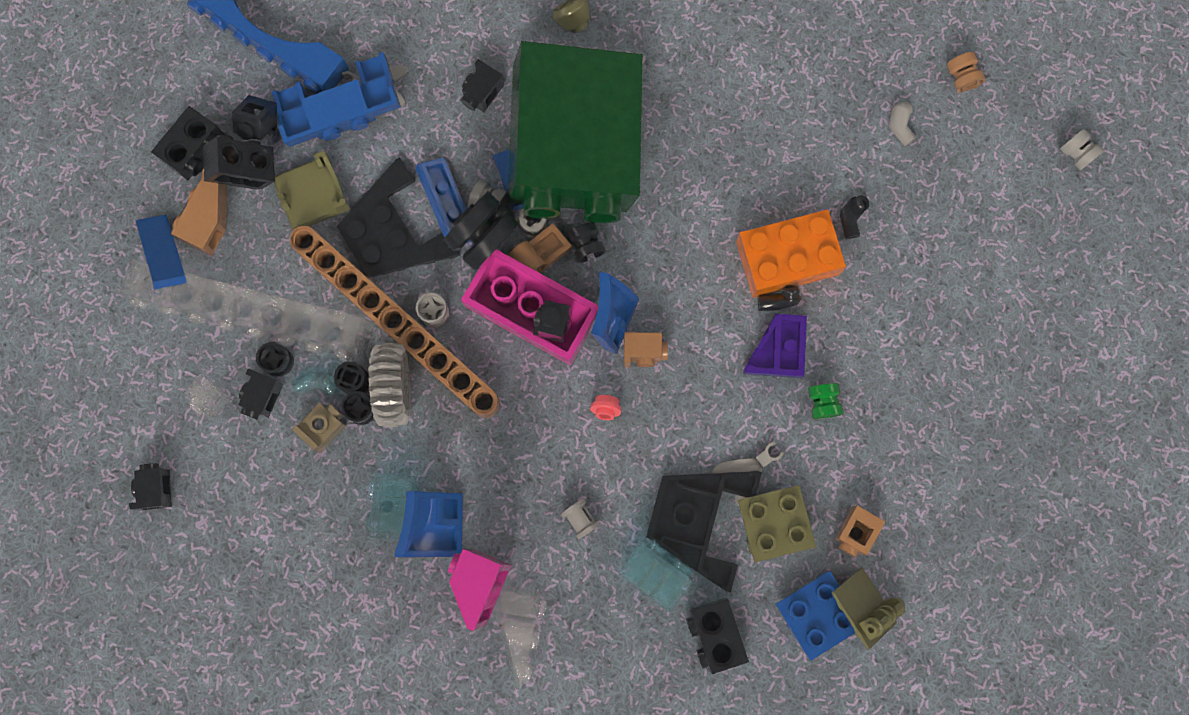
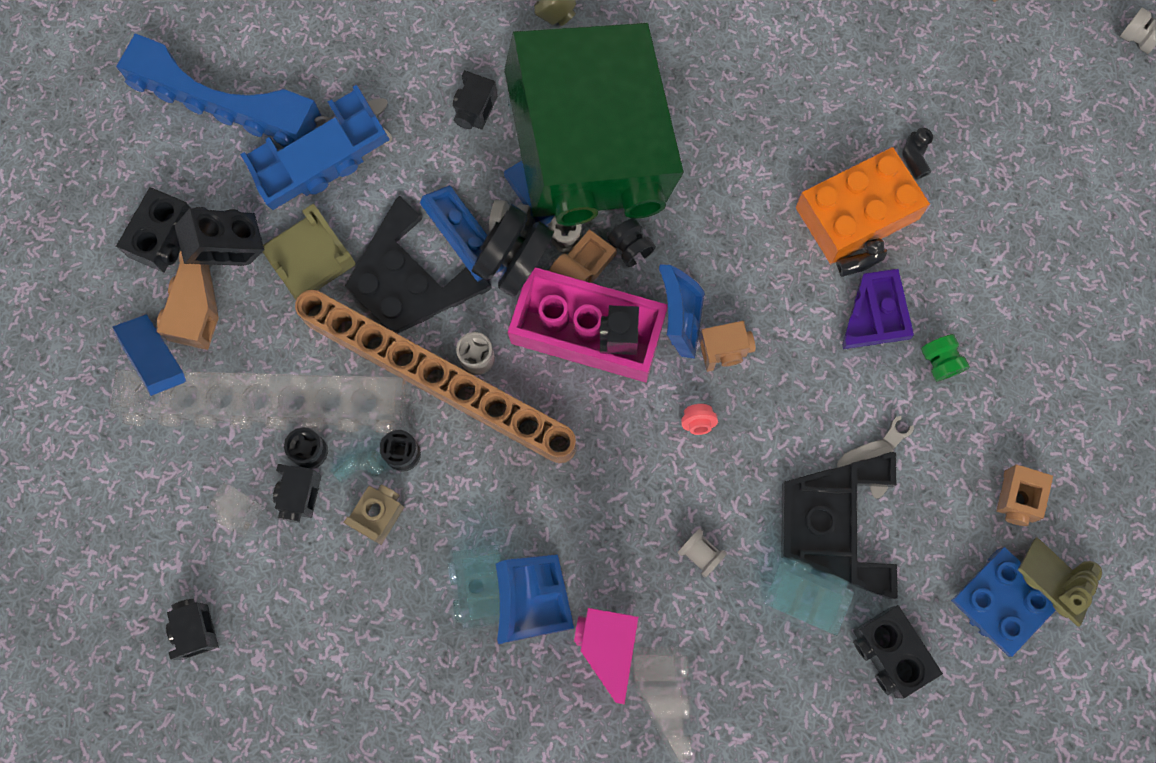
camera: 10 degrees left, 5 degrees down
(253, 126) = (227, 193): black brick -> none
(354, 406) = (413, 476): black wheel -> none
(390, 385) = (447, 446): light grey gear -> none
(776, 523) = (929, 507): olive hinge -> none
(899, 120) = (940, 46): light grey arm -> none

